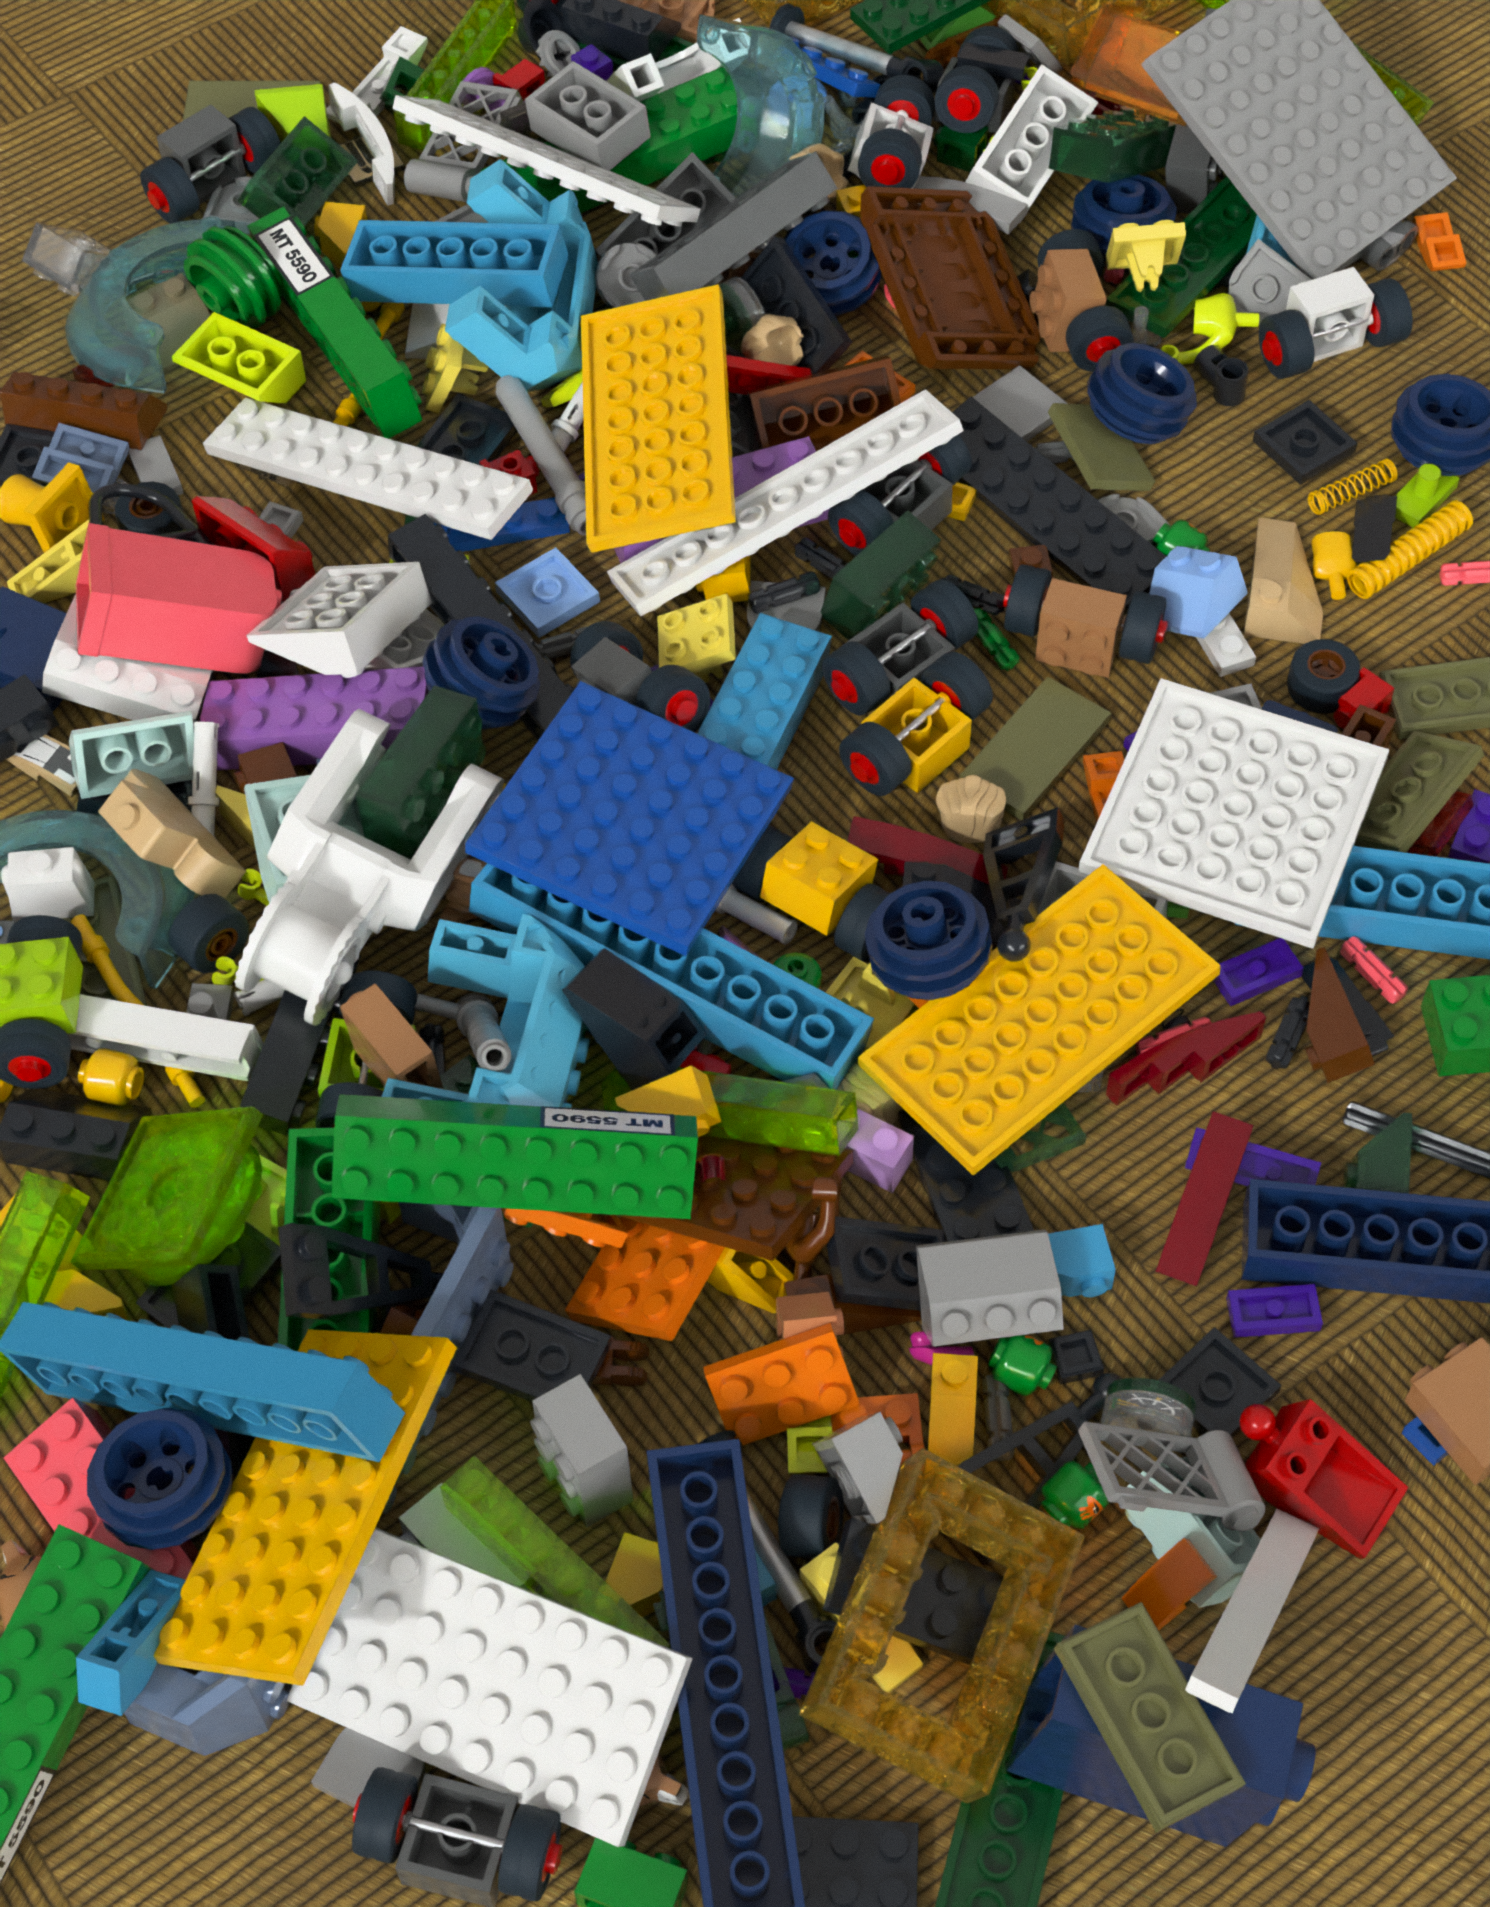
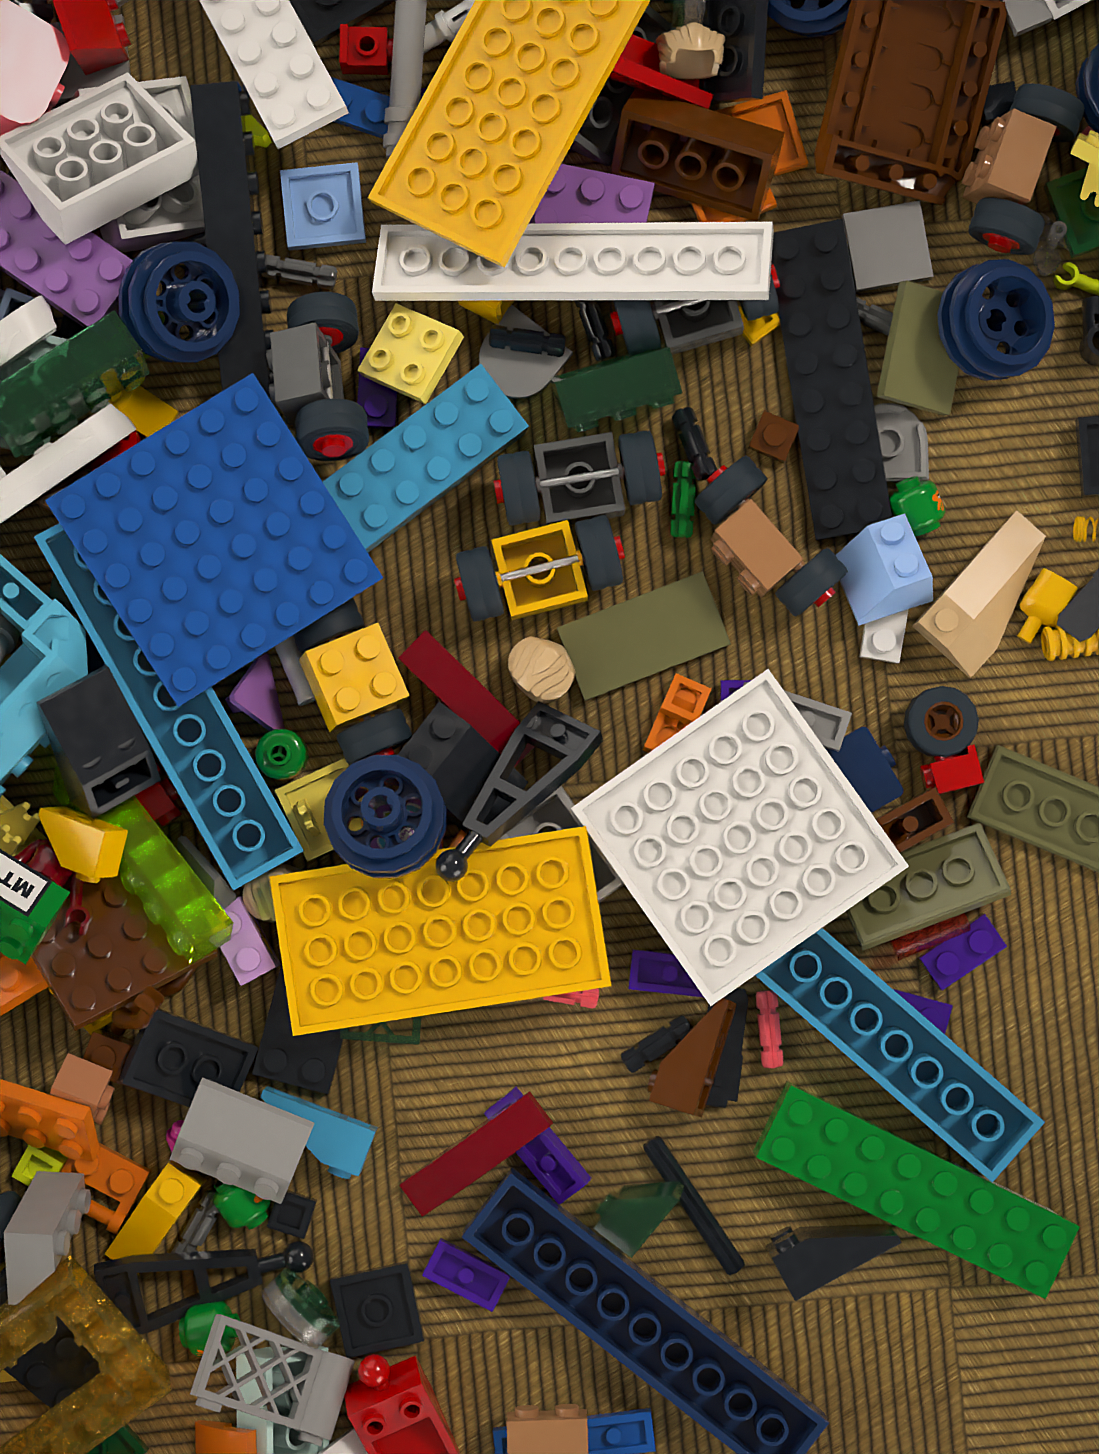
camera: 35 degrees right, 30 degrees up
(1195, 1051) = (570, 1020): dark red slope -> none

